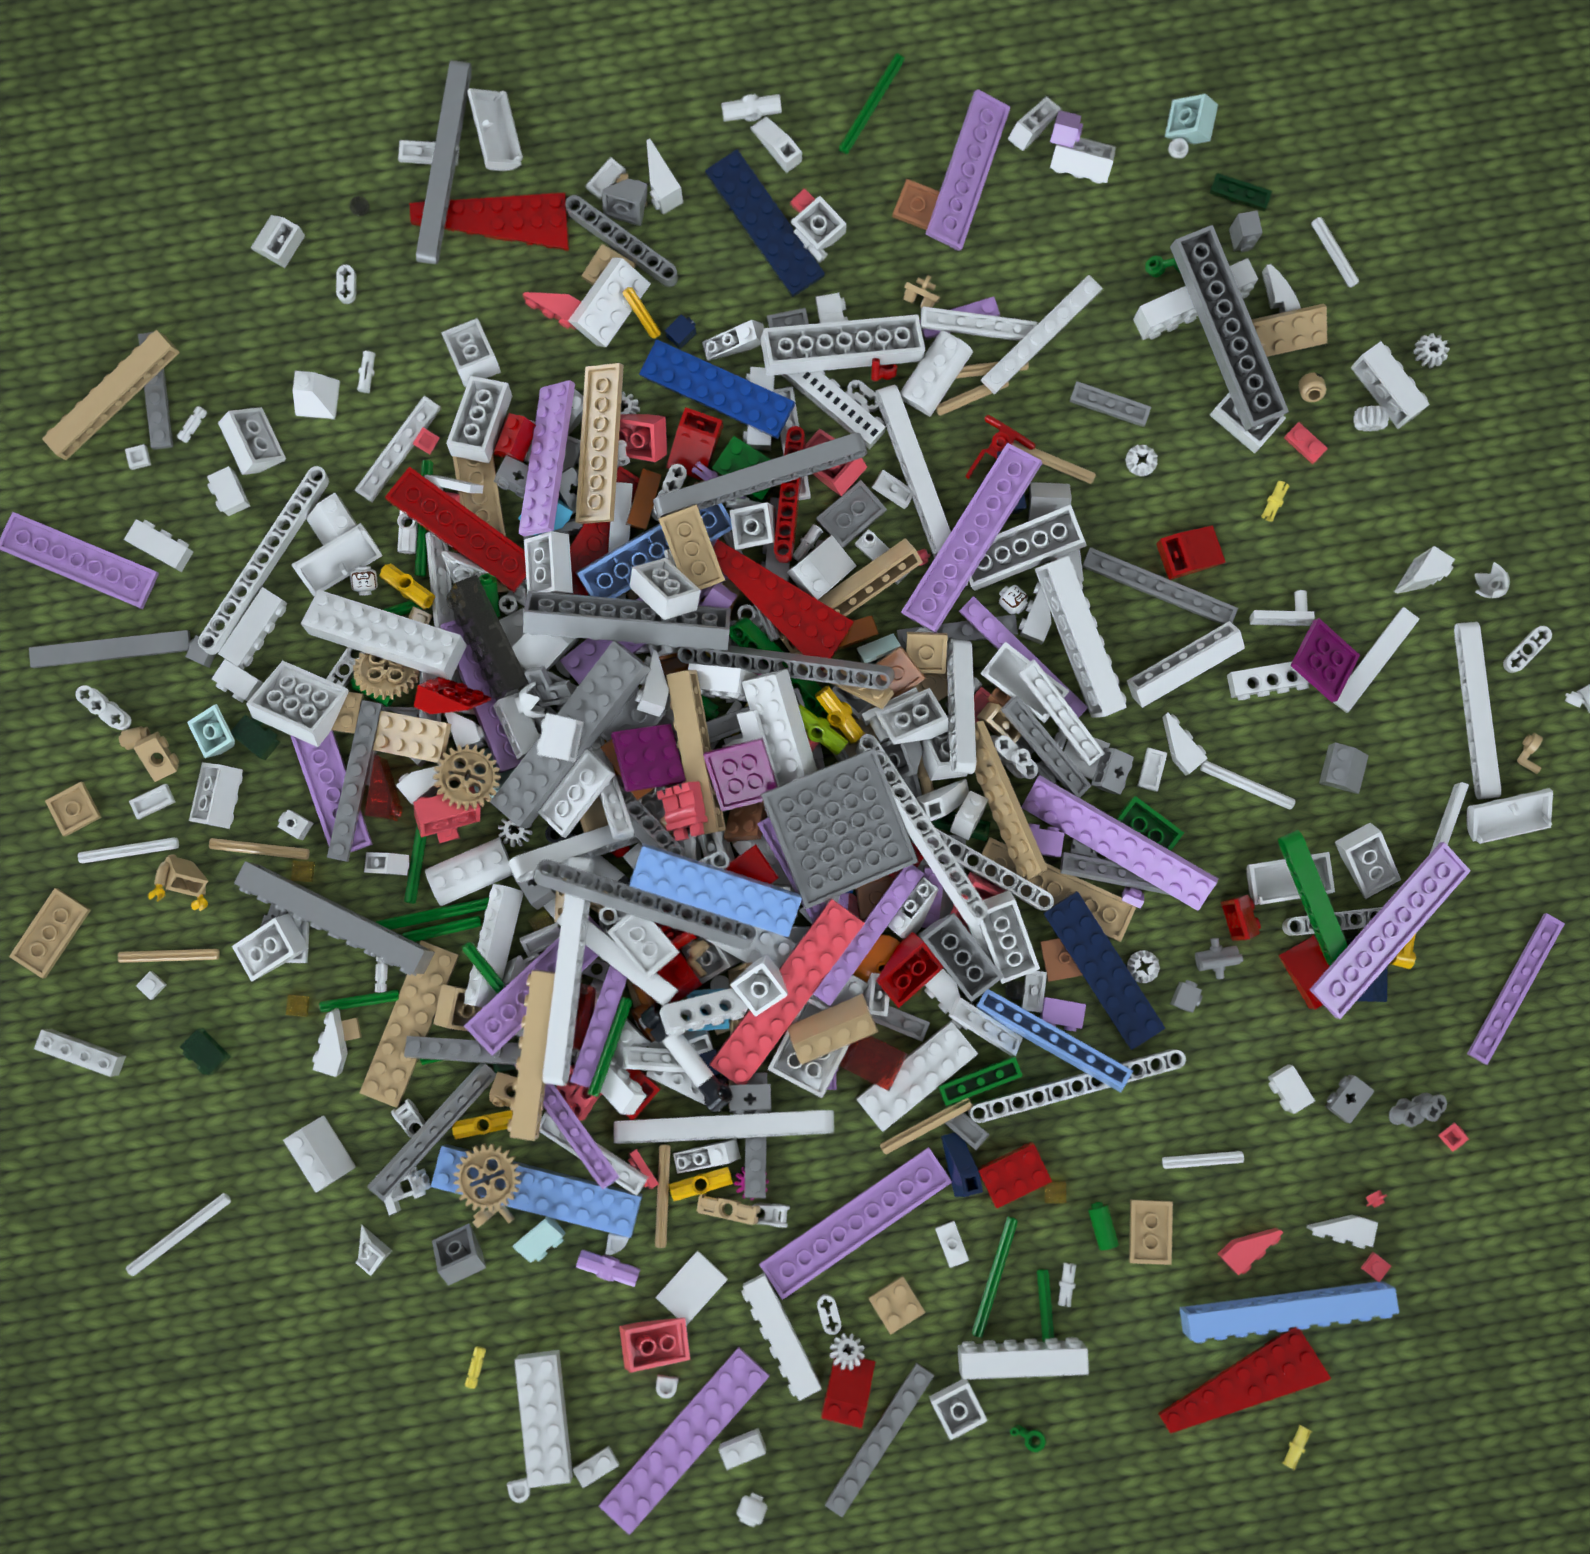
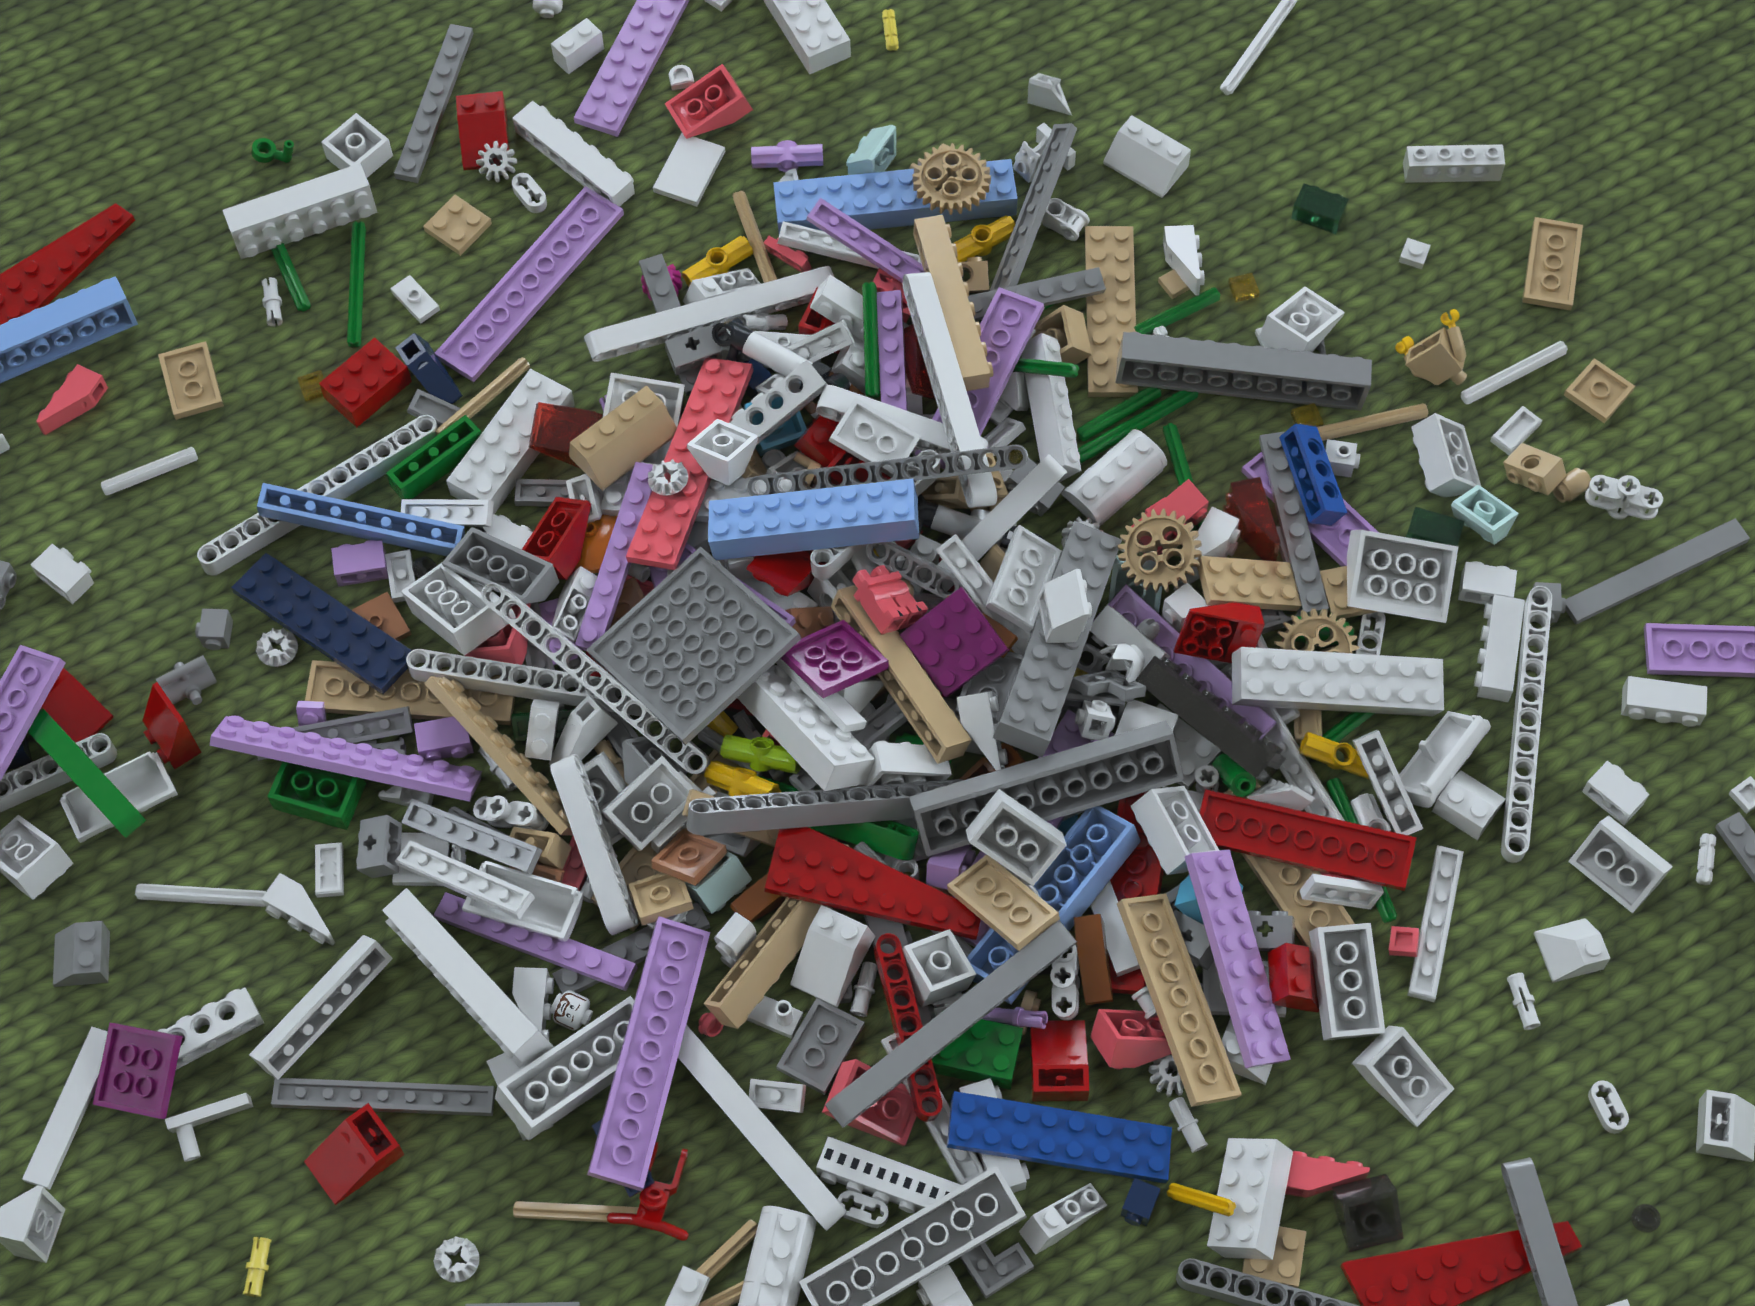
camera: 160 degrees right, 20 degrees down
(168, 955) = (1411, 286): tan axle -> none
(323, 809) = (1313, 474): none -> blue brick
(363, 580) = (1400, 746): white head -> none
(385, 547) = (1387, 783): none -> white brick
(386, 863) = (1213, 453): white slope -> none
(458, 1254) = (954, 116): light grey slope -> none
(501, 728) = (1149, 628): none -> light grey hinge
(535, 272) = (1368, 1212): none -> clear smoke slope
(570, 664) = (1095, 720): none -> white brick
(628, 371) = (1187, 1124): none -> white axle
(685, 1110) = (765, 321): none -> white pin
(715, 1207) = (662, 244): tan piece -> none
(772, 1214) = (628, 258): white piece -> none
(804, 970) = (658, 482): none -> white gear
(882, 371) = (853, 1236): red plate -> none
(884, 602) = (734, 939): none -> white brick
(1047, 498) = (563, 1158): white slope -> none
(1103, 1226) = (247, 366): green brick -> none

